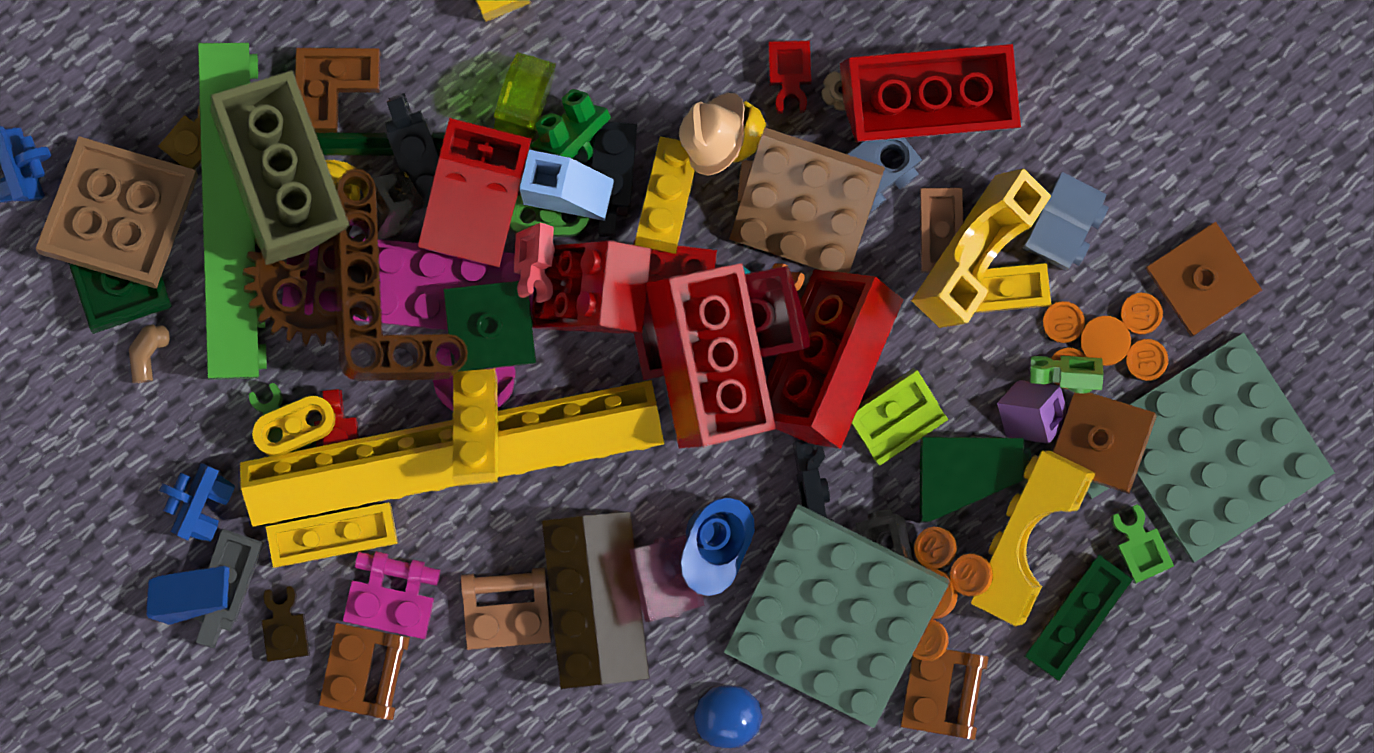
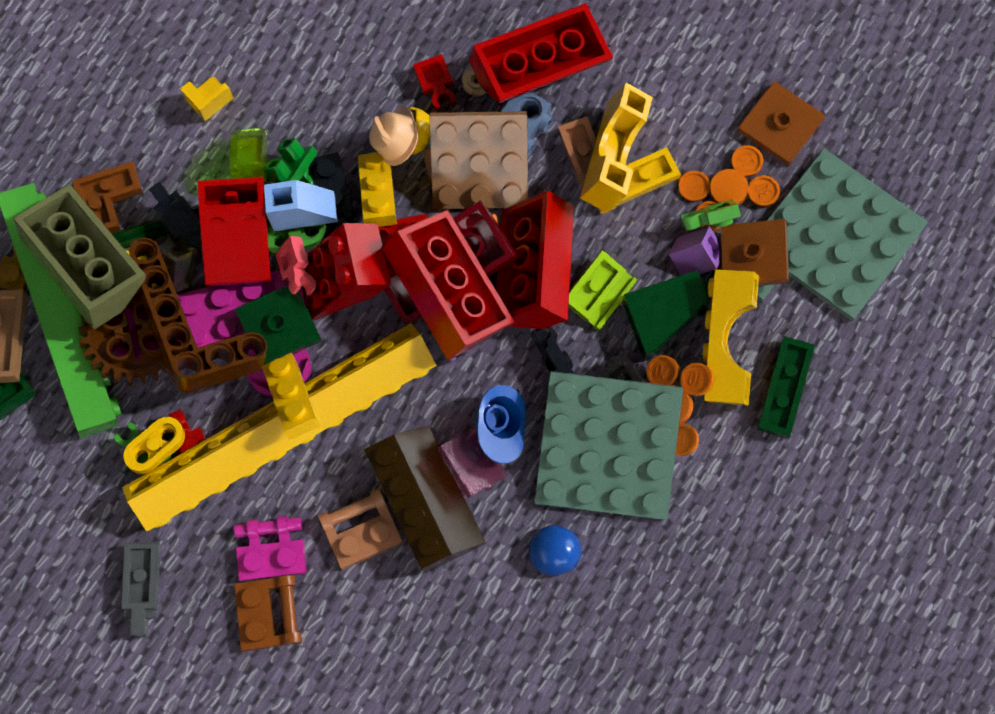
camera: 20 degrees left, 10 degrees down
(142, 349) = (23, 433): medium nougat arm -> none
(187, 594) = (112, 599): blue slope -> none
(190, 519) = (102, 515): blue hips -> none
(286, 633) = (198, 605): dark brown plate -> none
(331, 535) = (209, 519): yellow plate -> none
(929, 693) = (697, 477): dark orange plate -> none
(1065, 221) = (669, 115): sand blue brick -> none
(1143, 551) = (814, 324): bright green plate -> none

